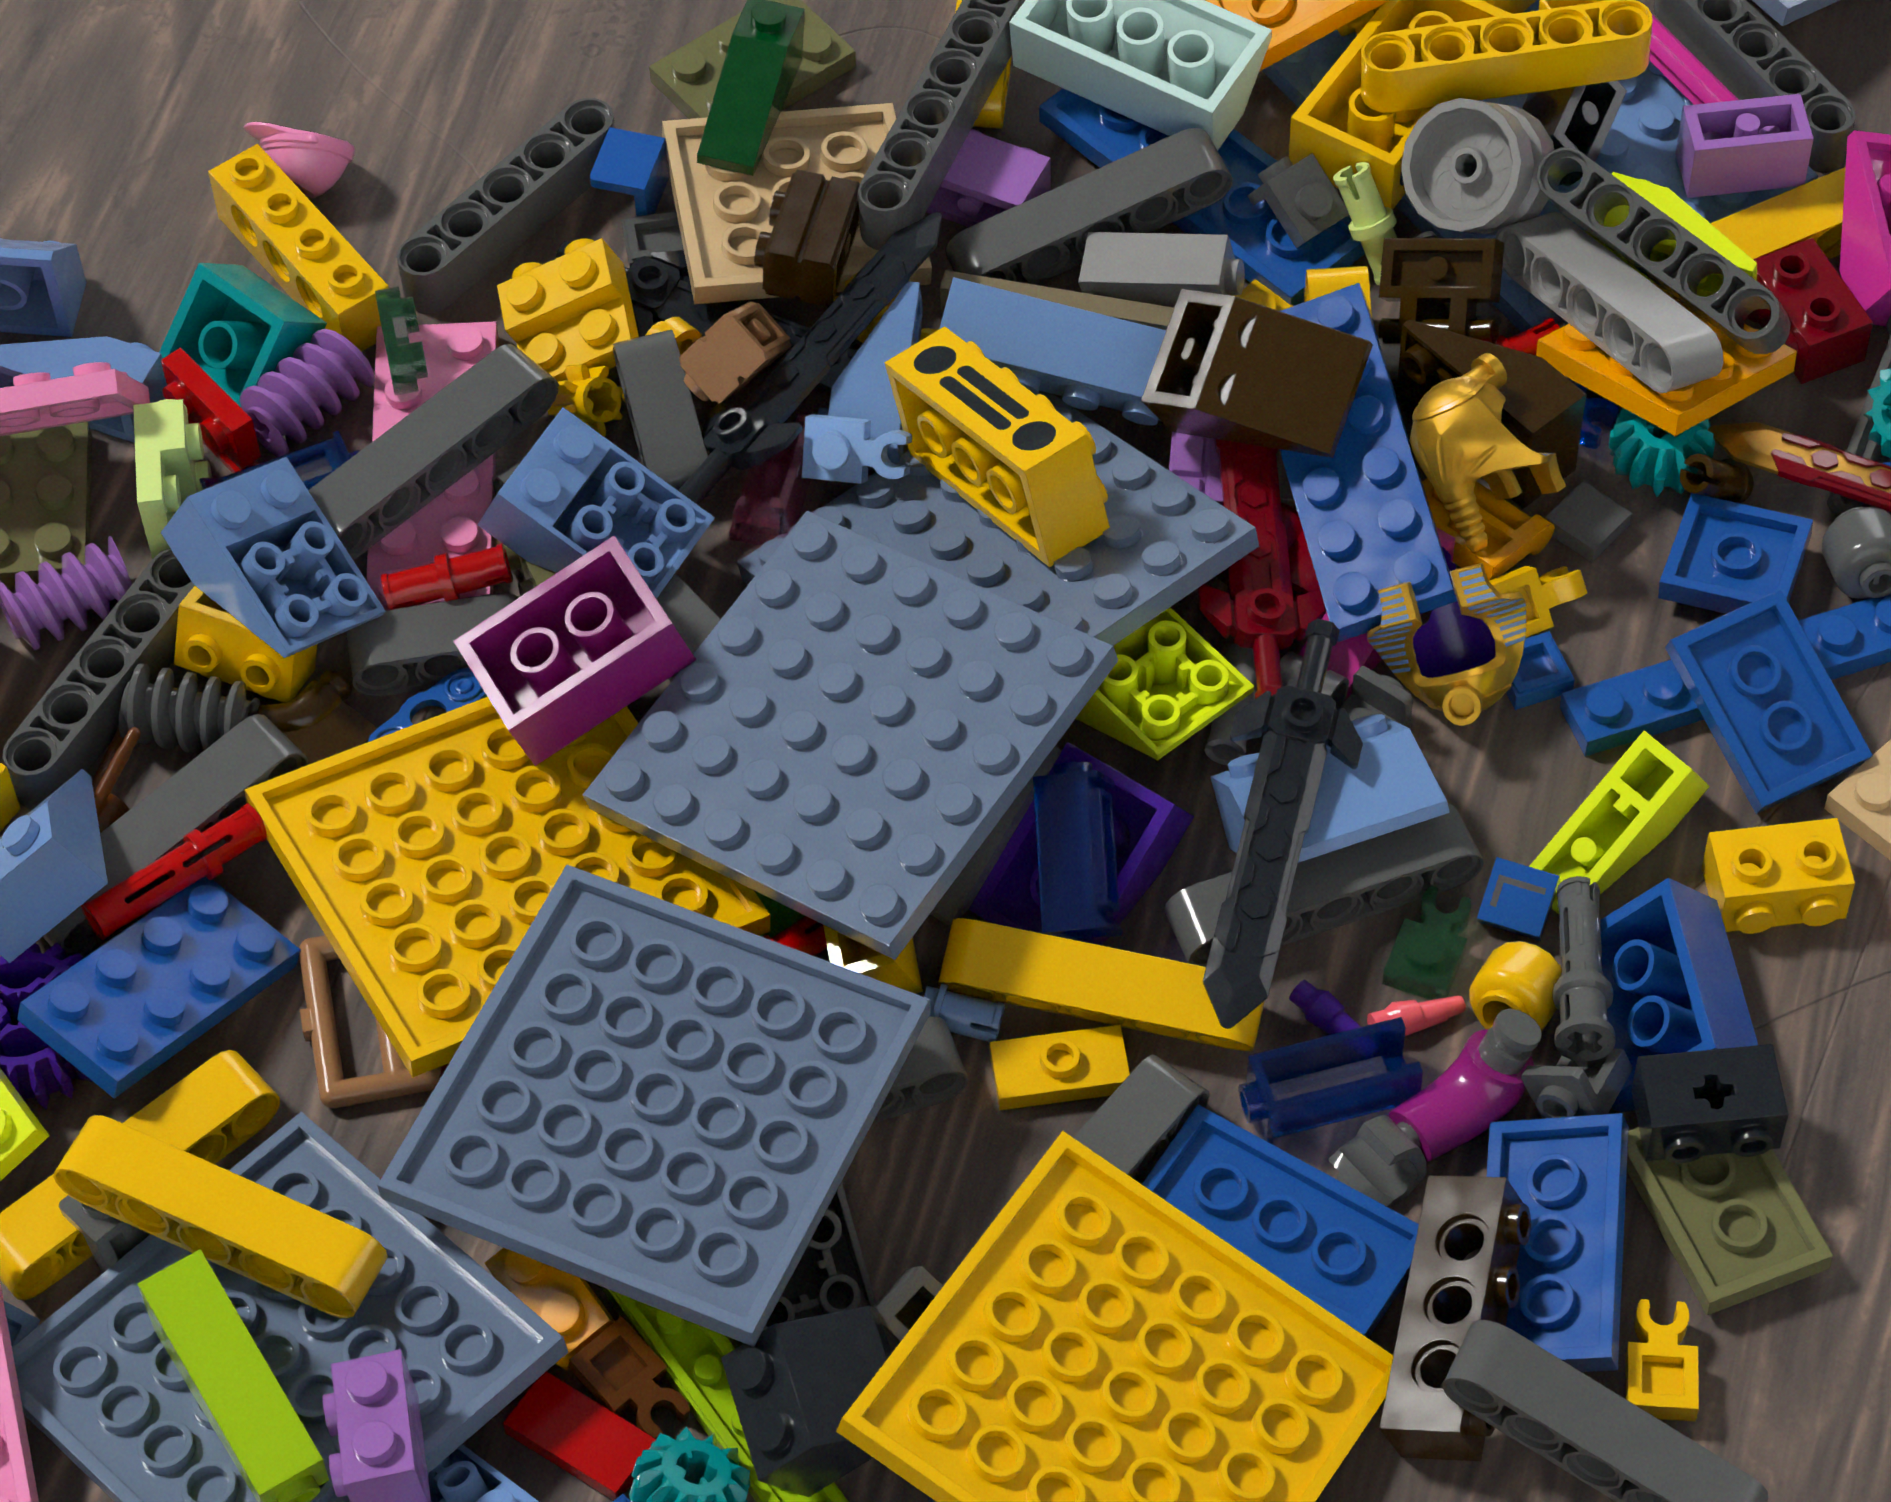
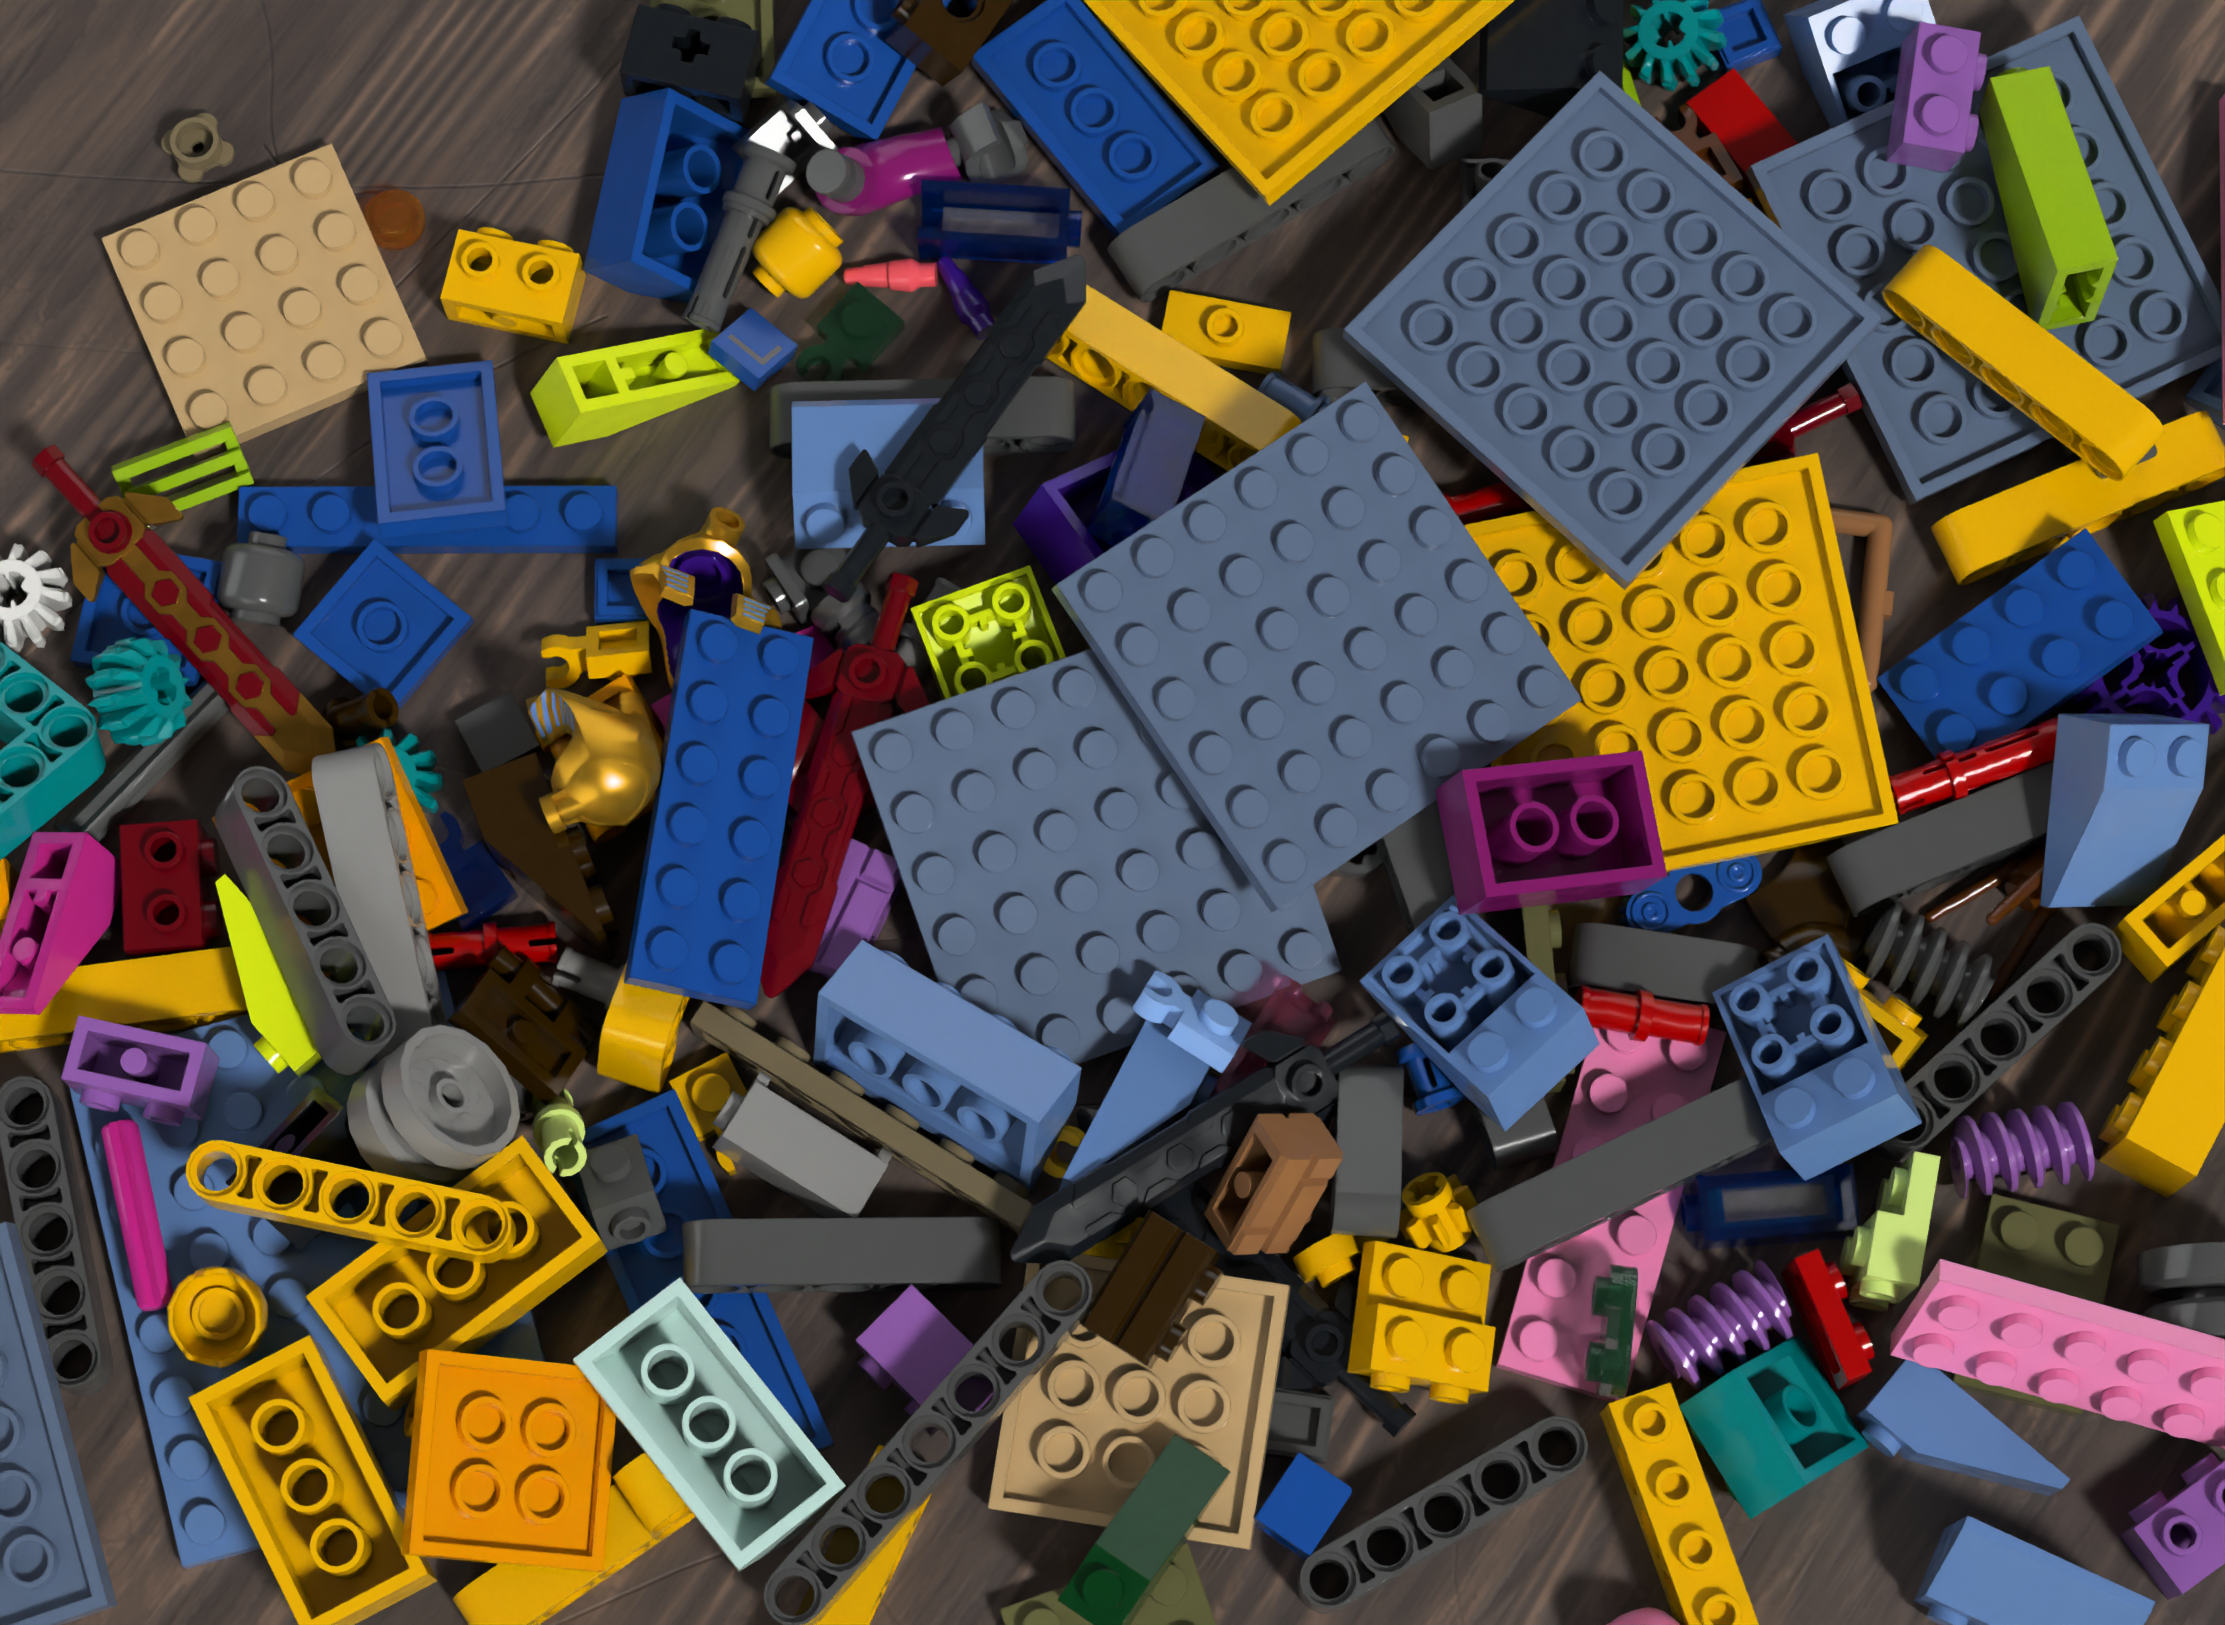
camera: 165 degrees left, 20 degrees up
(999, 445) = (1065, 914): yellow brick -> none
(1254, 375) = (782, 892): dark brown slope -> none

